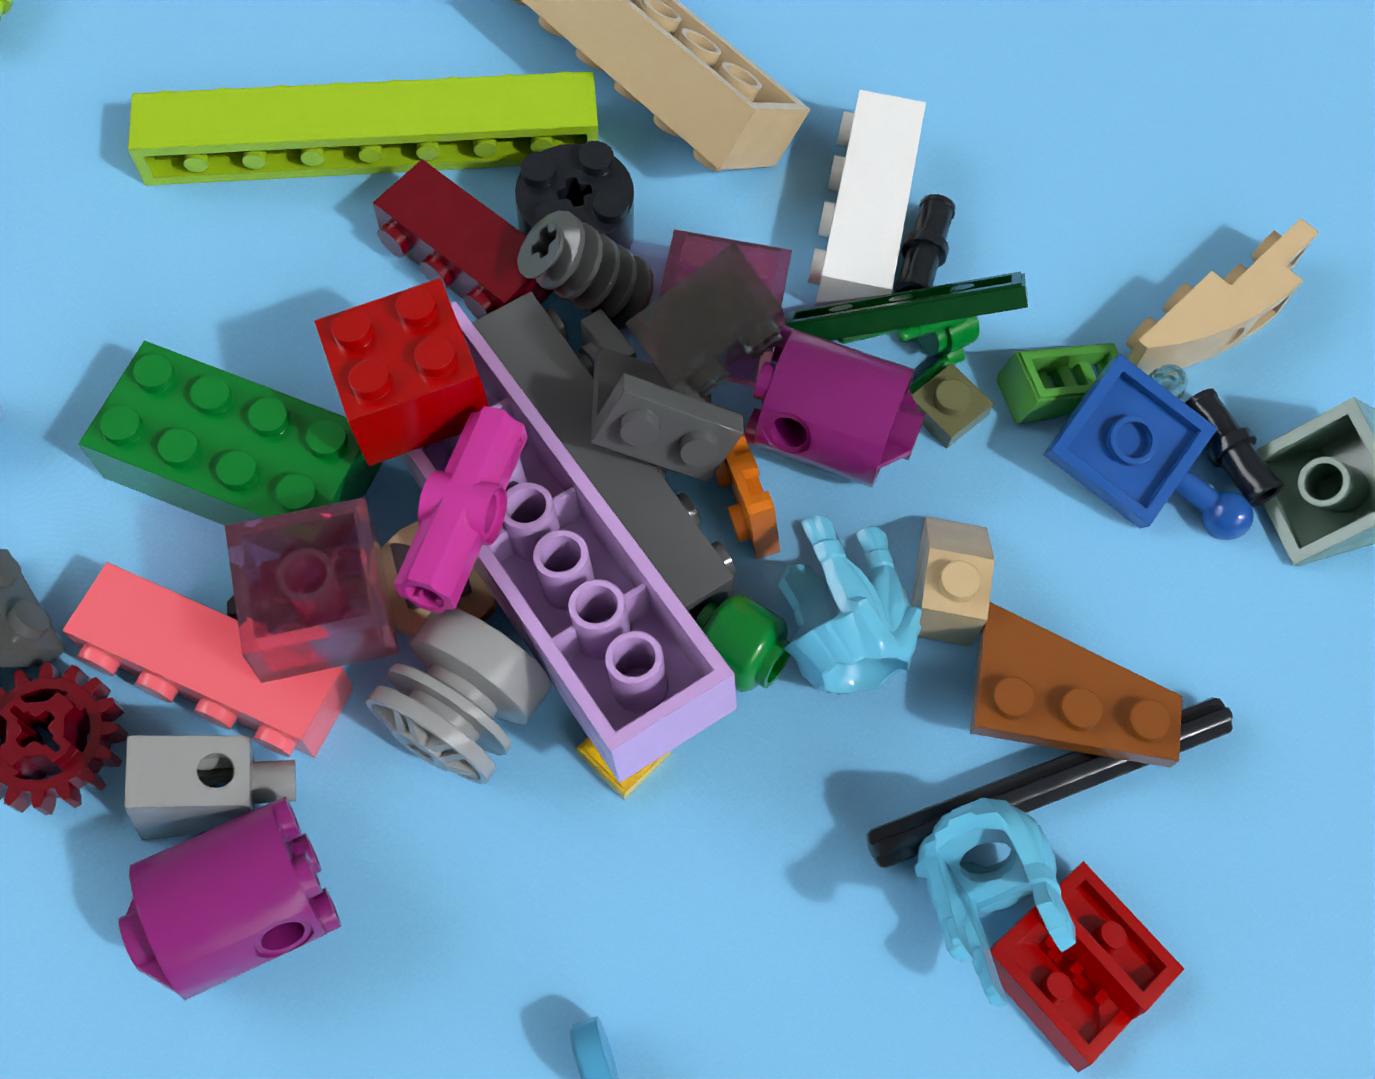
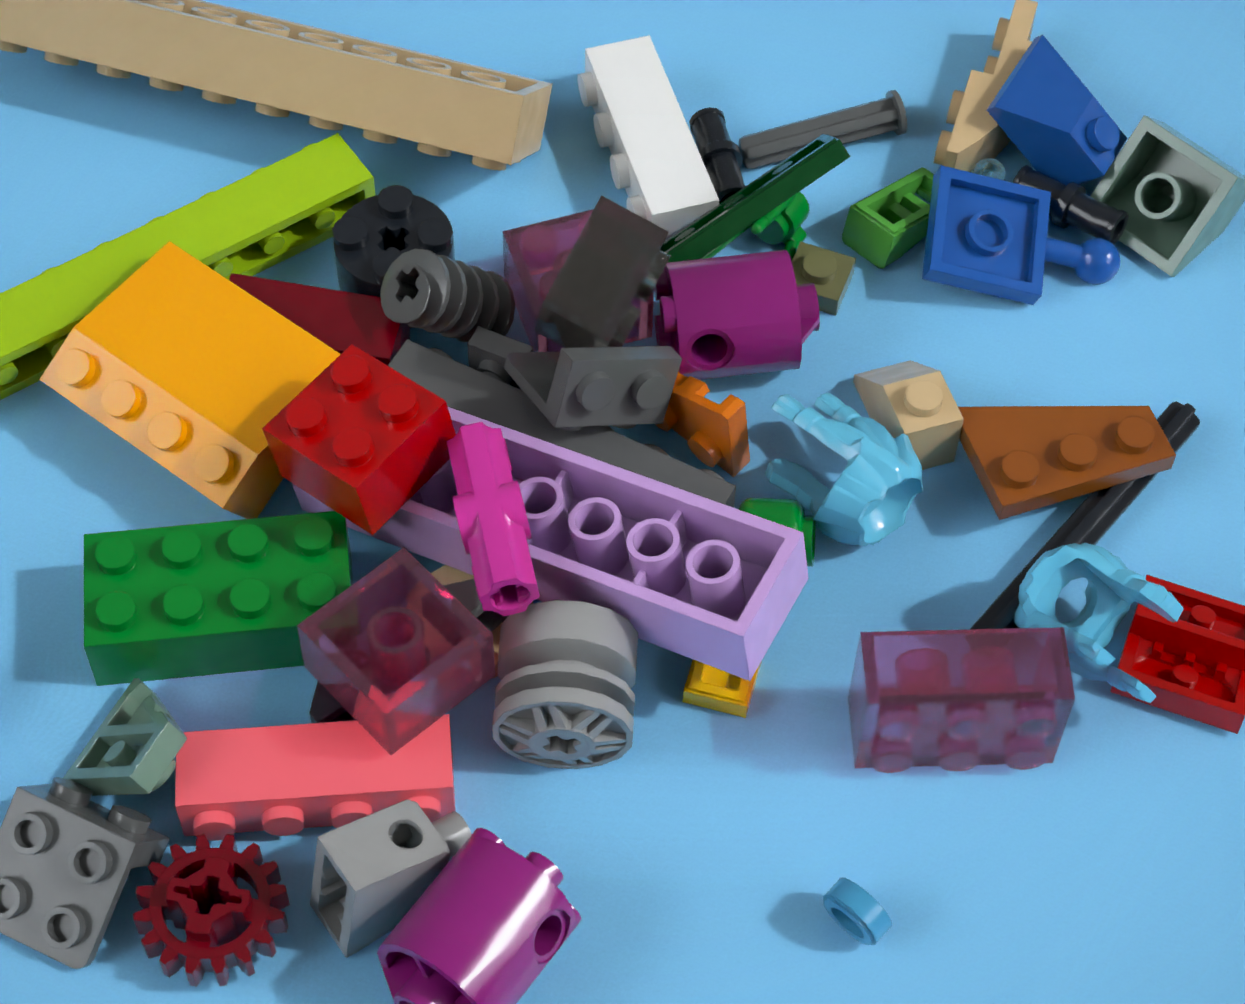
camera: 25 degrees left, 10 degrees down
(66, 558) = (131, 747): none -> sand green wing
(322, 229) = (190, 375): none -> light orange slope
(813, 904) = (959, 698): none -> clear pink brick
(1041, 266) = (845, 124): none -> dark grey axle
(1268, 356) = (1056, 118): none -> blue slope

